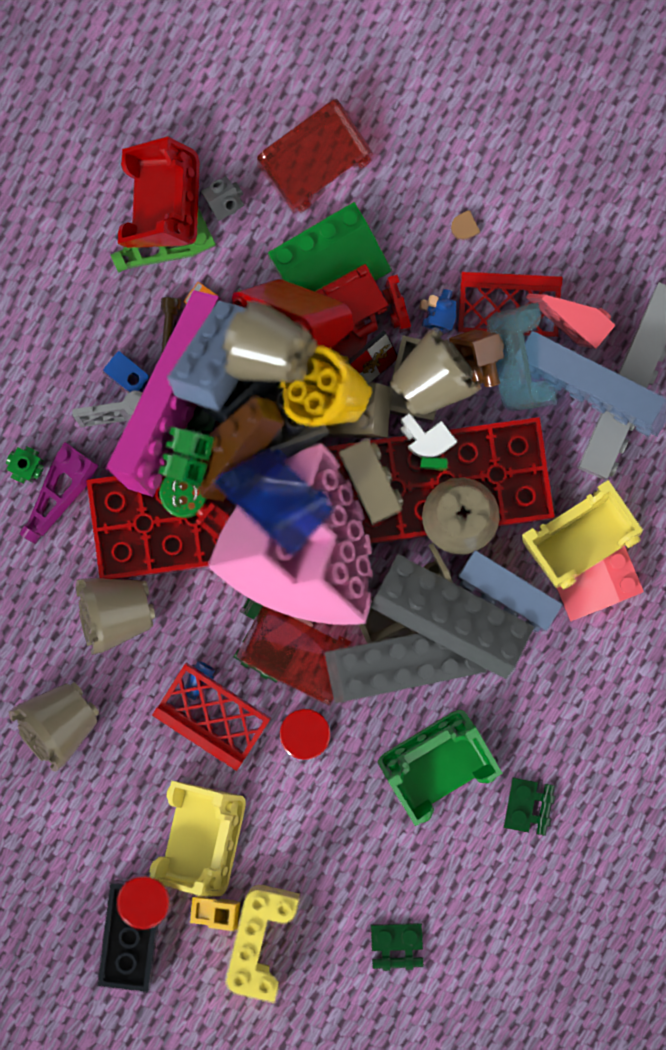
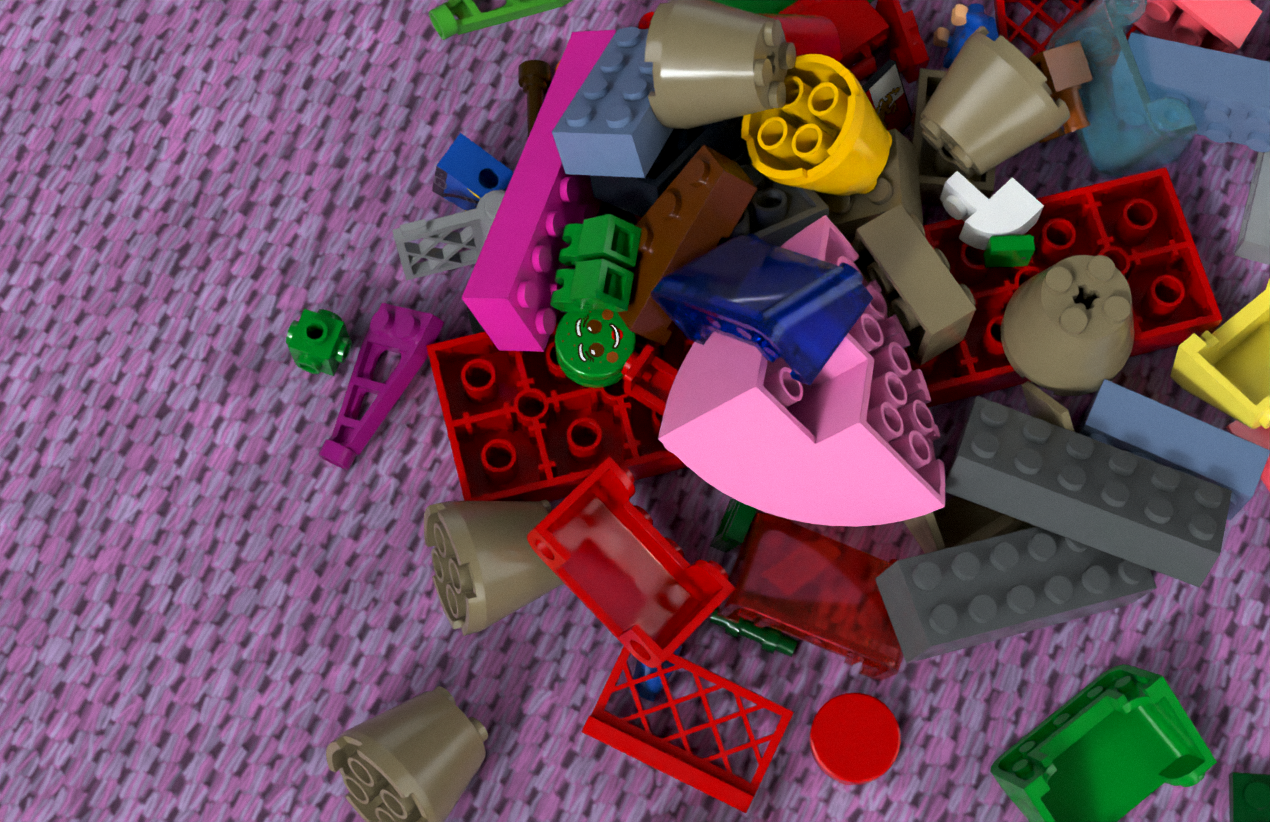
camera: 10 degrees left, 15 degrees down
(186, 629) = (626, 567): none -> red windscreen

